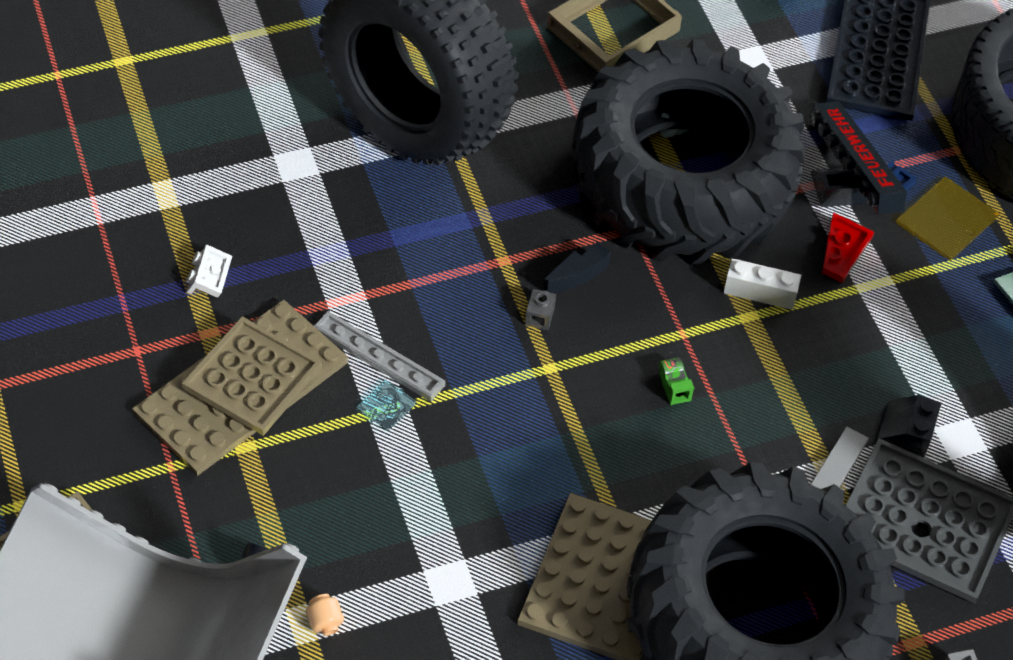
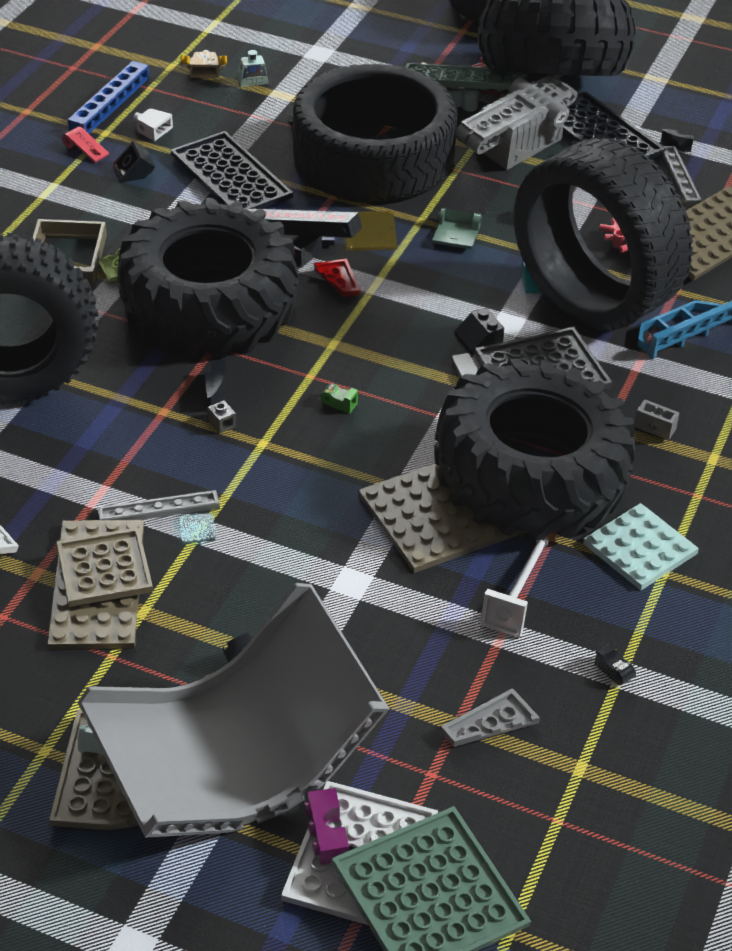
camera: 45 degrees left, 10 degrees down
(762, 284) = (323, 320): white brick -> none

